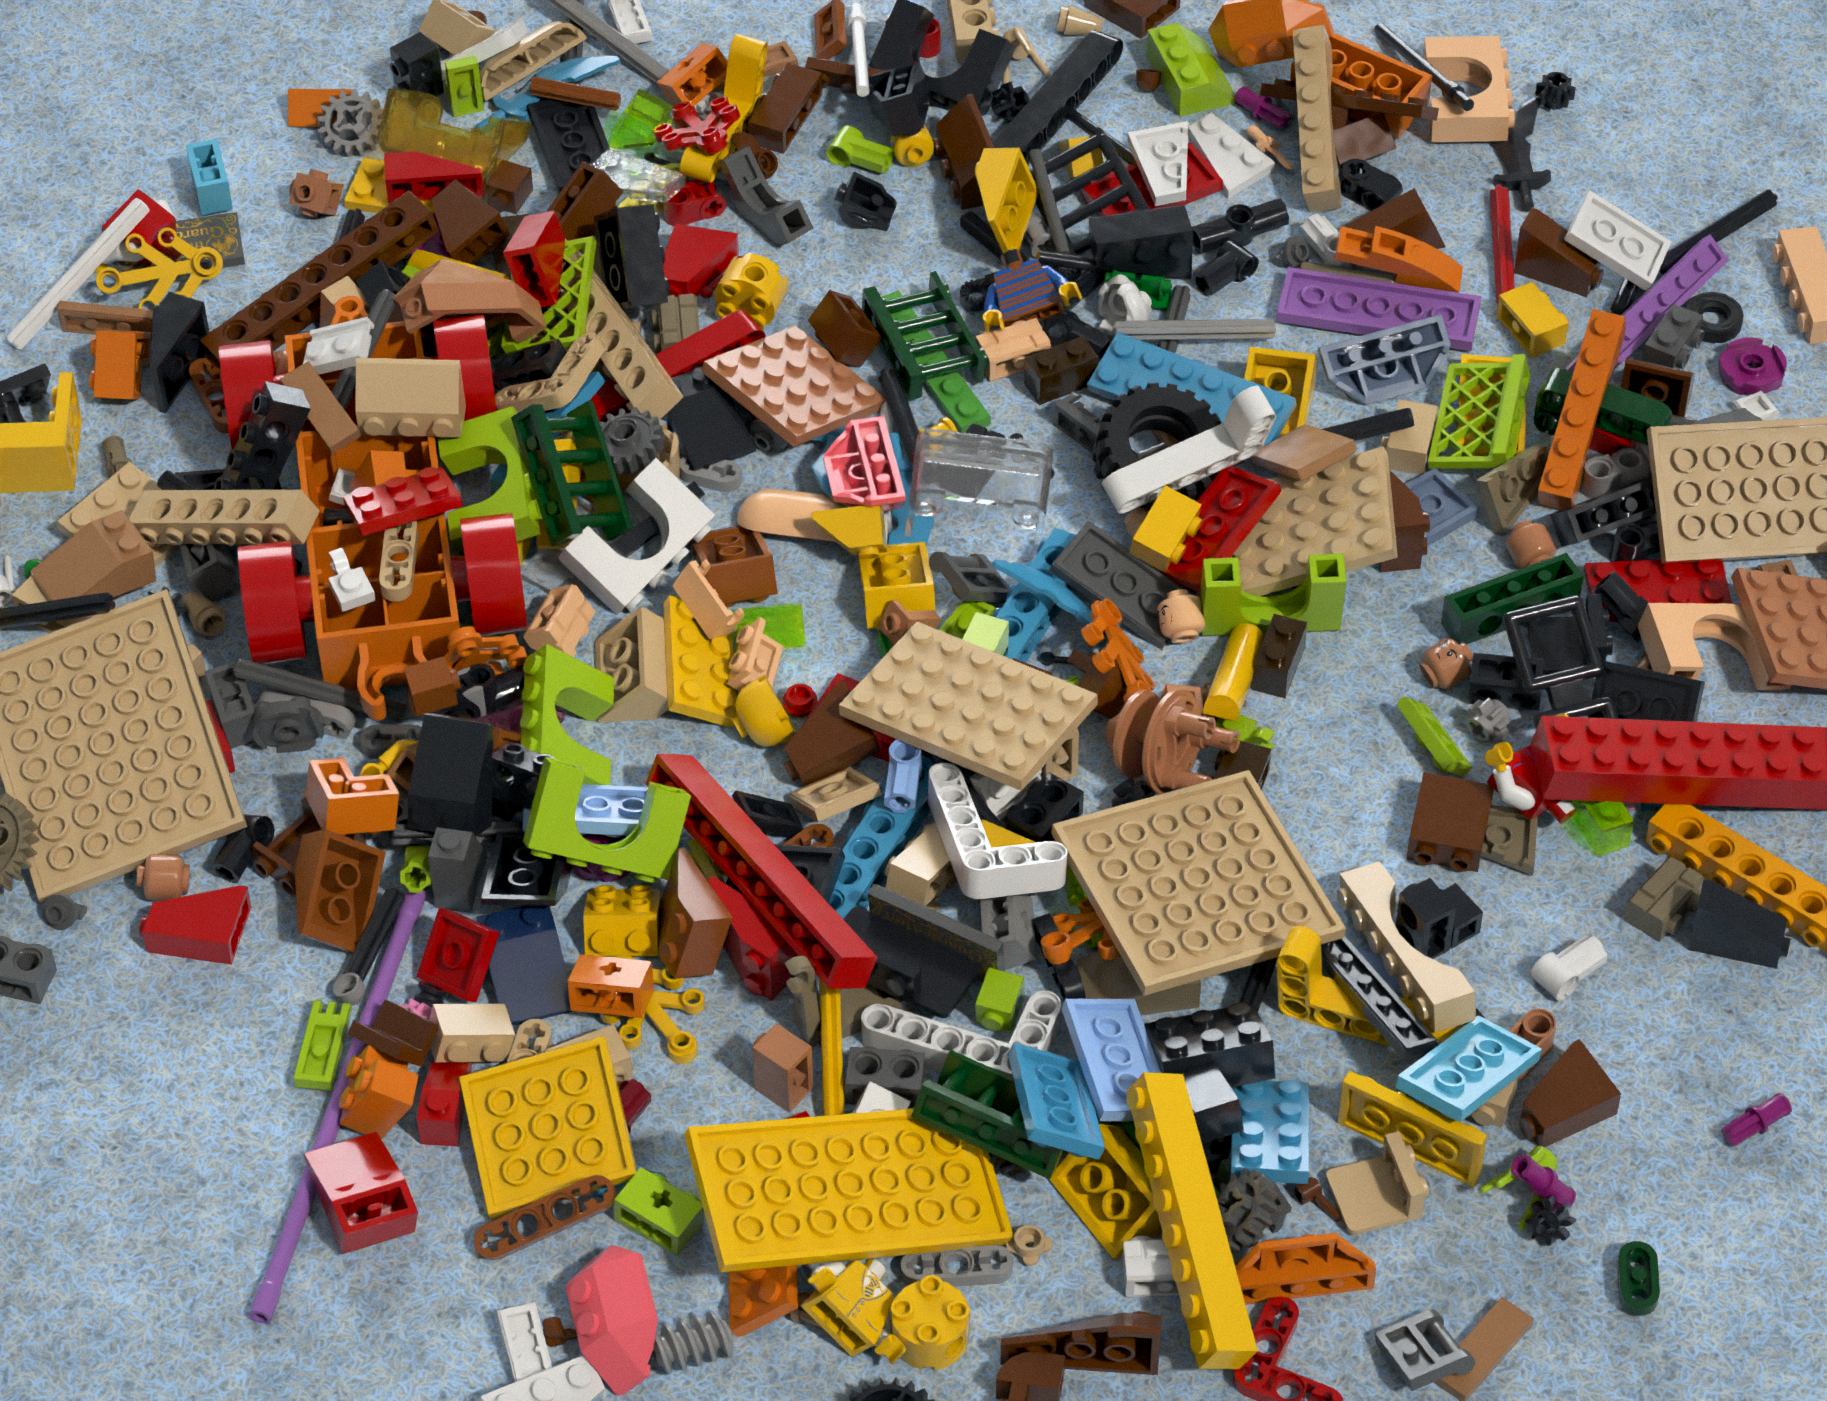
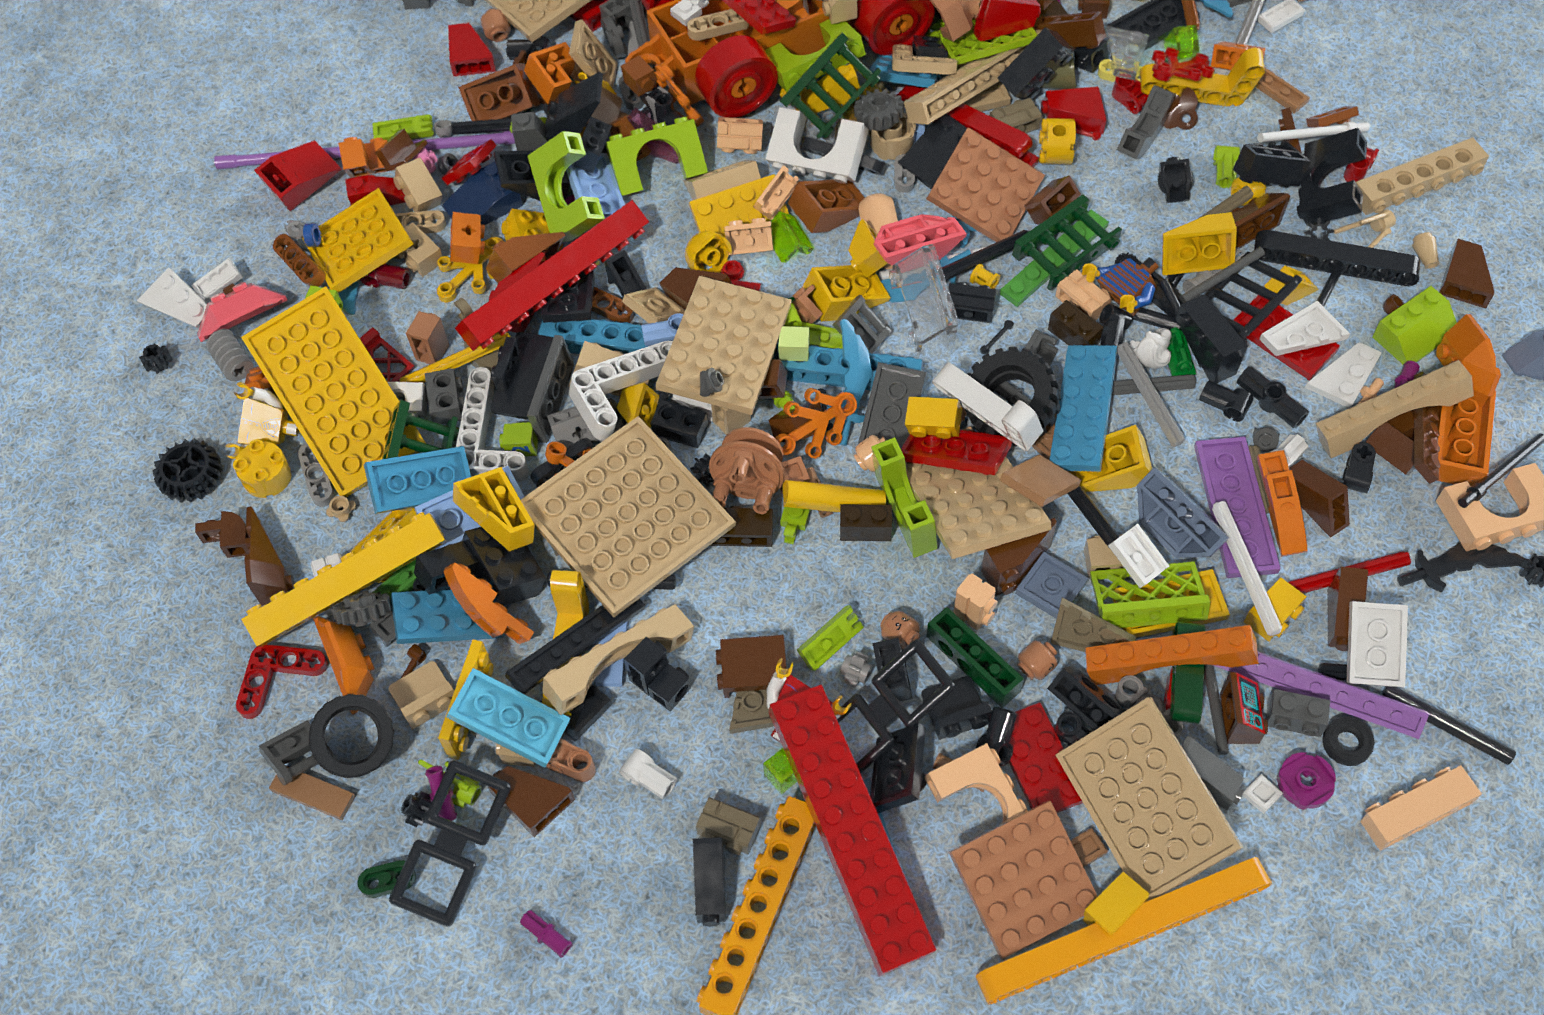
camera: 75 degrees right, 10 degrees up
(326, 746) = (591, 54): none -> tan tile
(480, 1210) = (294, 229): none -> light grey axle
(514, 1181) = (311, 235): none -> blue tile
(785, 107) = (1243, 114): reddish brown brick -> none
(937, 176) = (1232, 202): none -> dark tan axle
(1050, 716) = (710, 382): none -> dark grey plate
(1151, 1006) = (495, 507): none -> yellow wedge
(1281, 1070) = (476, 600): none -> orange slope
(1435, 1260) = (336, 706): none -> black tyre
(1436, 400) = (1138, 555): none -> white plate
(1439, 573) = (975, 602): none -> light nougat brick
(1483, 316) = (1247, 569): none -> white axle
(1616, 1184) = (450, 843): none -> black bar

